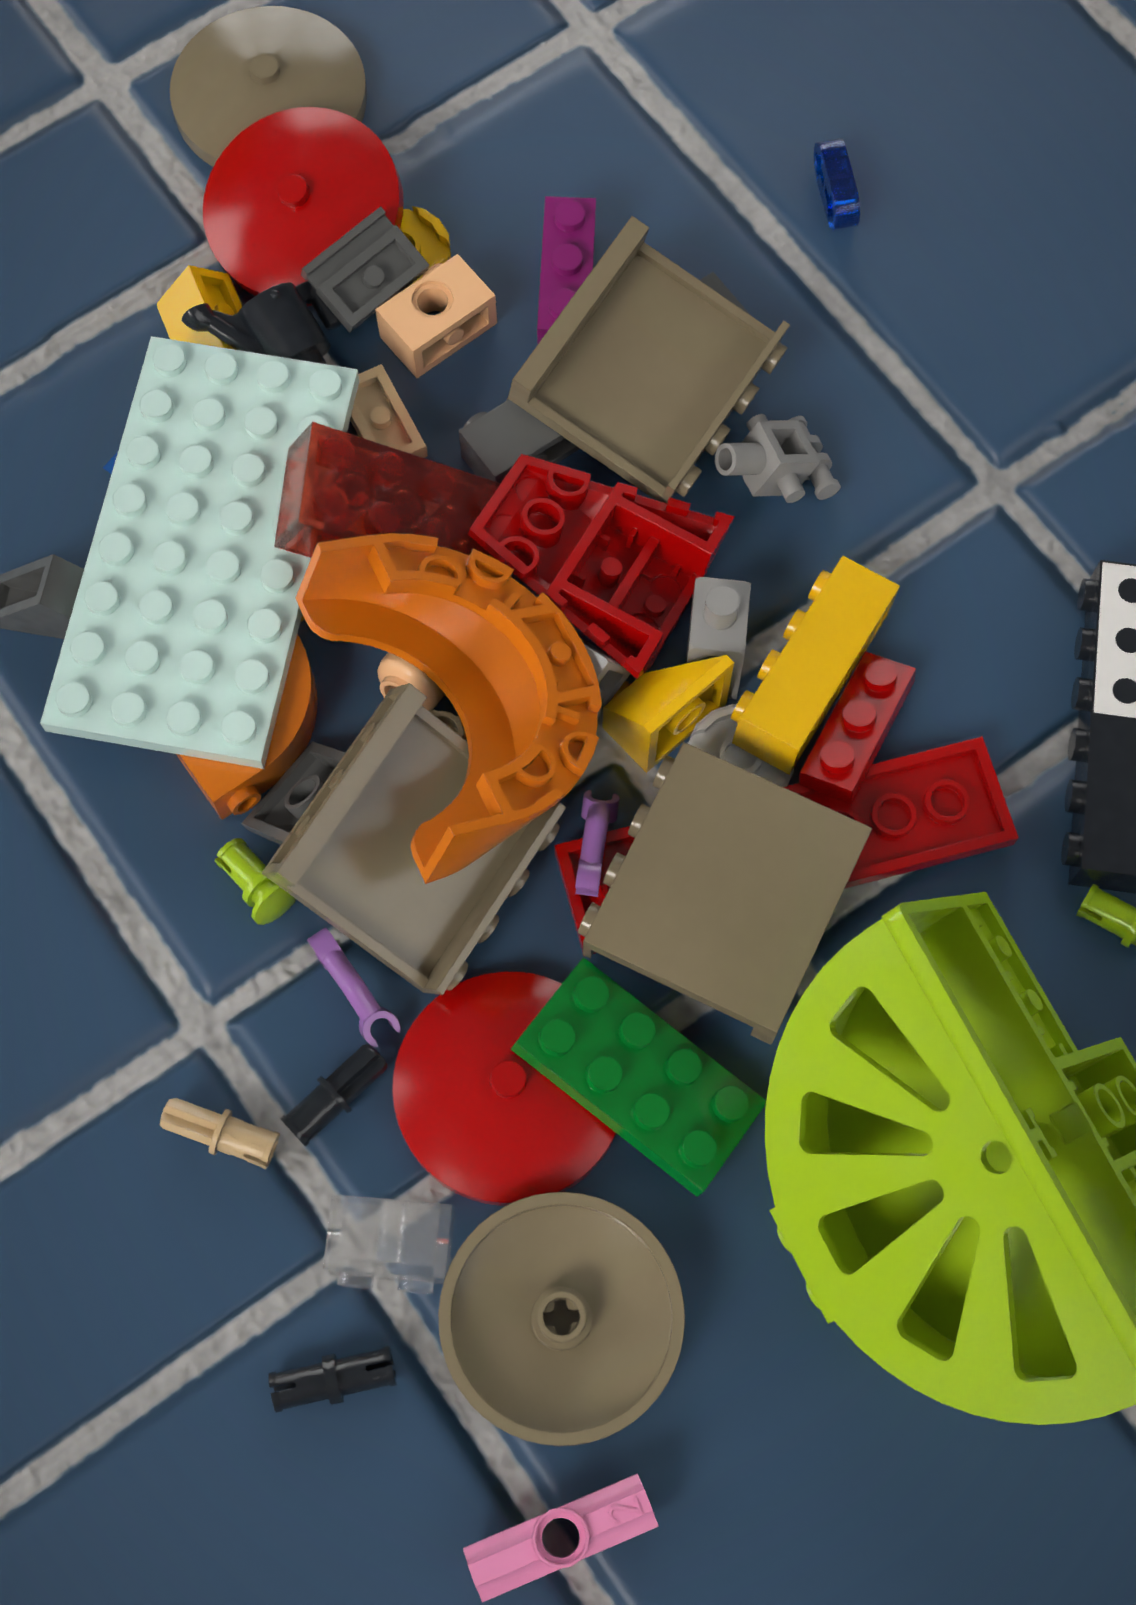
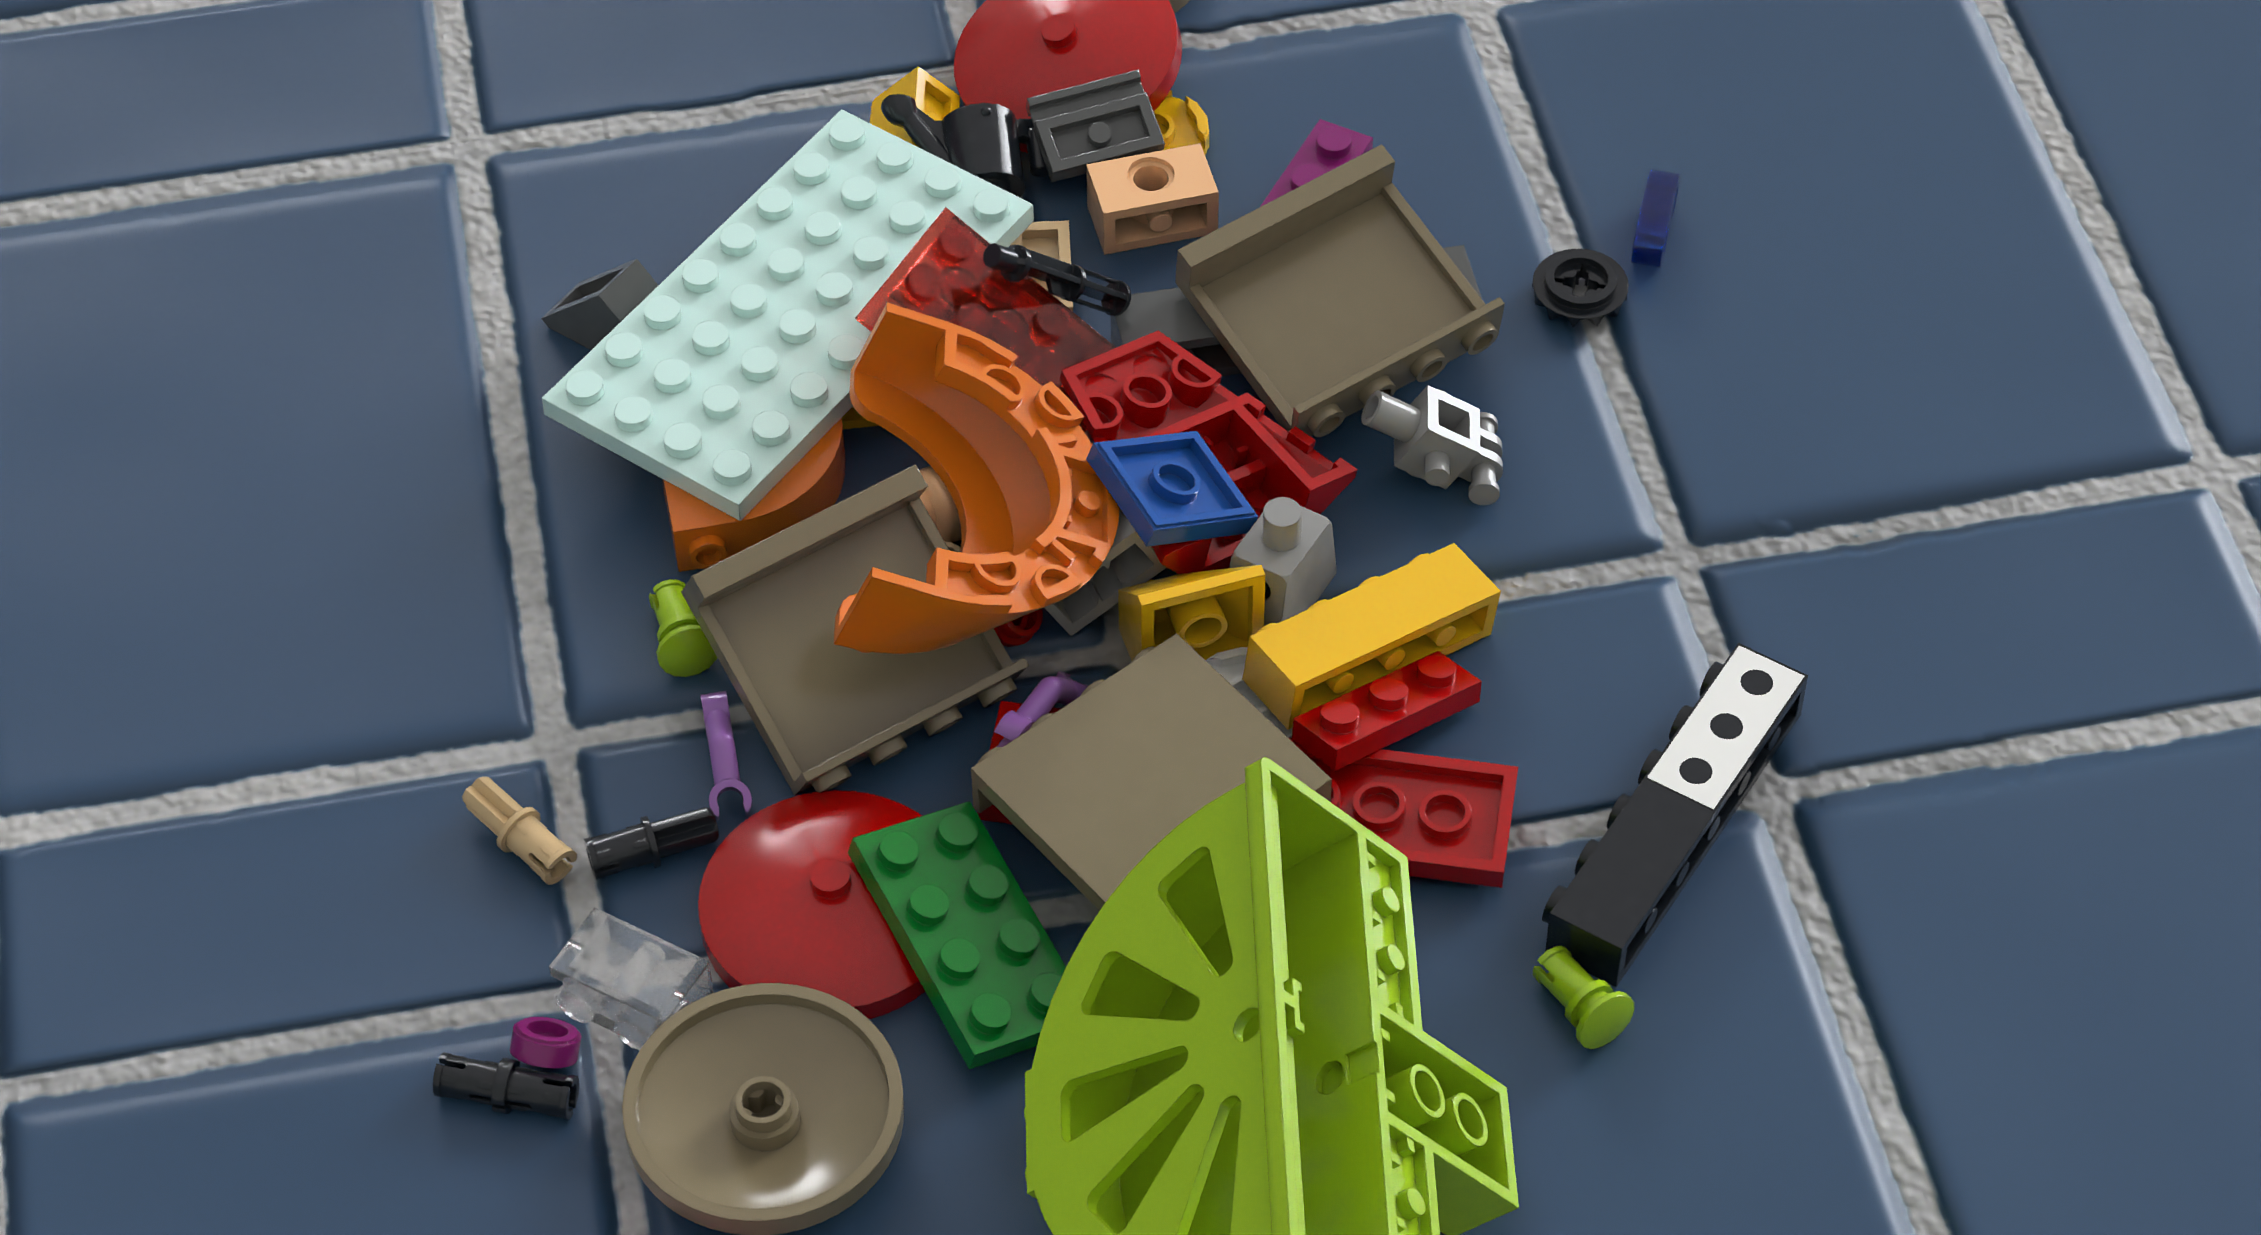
camera: 25 degrees right, 20 degrees down
(347, 1327) = (545, 1042): none -> magenta tile
(431, 442) = (1062, 278): none -> black piece
(615, 608) = (1171, 488): none -> blue tile
(820, 255) = (1561, 271): none -> black gear

